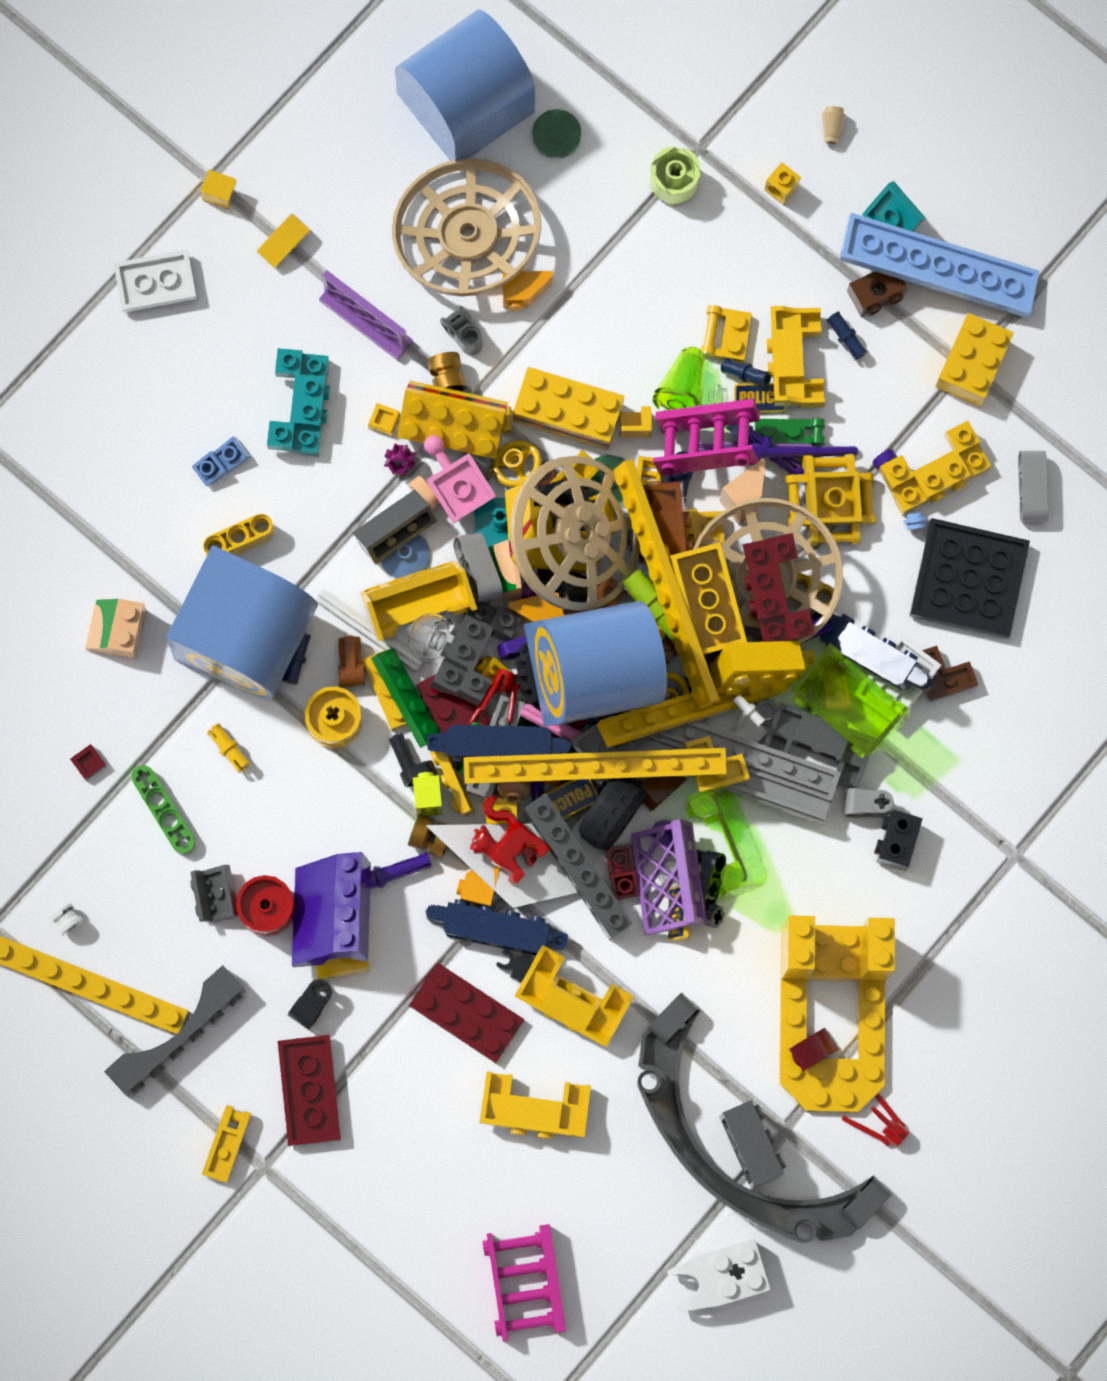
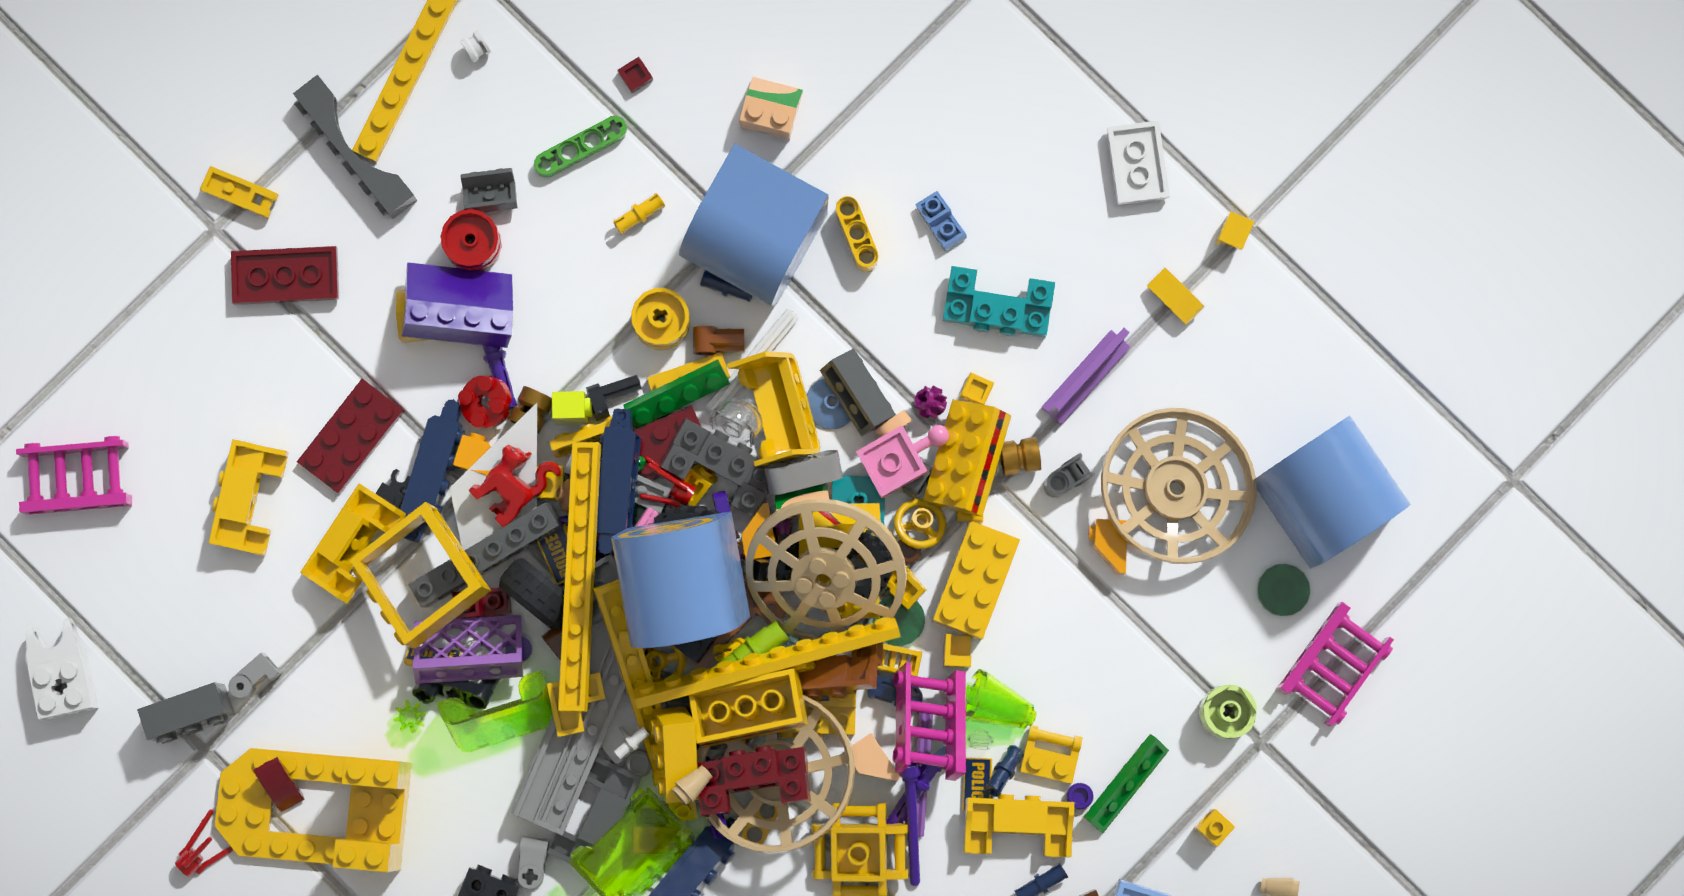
camera: 90 degrees right, 5 degrees up
(307, 1007) = (369, 280): black piece -> none
(439, 885) = (471, 398): none -> red plate
(577, 889) = (476, 585): none -> yellow window
(601, 95) = (1325, 640): none -> dark pink fence
(714, 1092) = (245, 681): none -> light grey leg
(735, 922) = (402, 719): none -> clear neon green gear
(754, 268) = (1126, 783): none -> green plate
(761, 305) = (1080, 794): none -> dark purple tile
(788, 644) = (691, 785): none -> tan cone
(792, 430) = (939, 814): green plate -> none
(827, 1217) = (117, 722): dark grey panel -> none

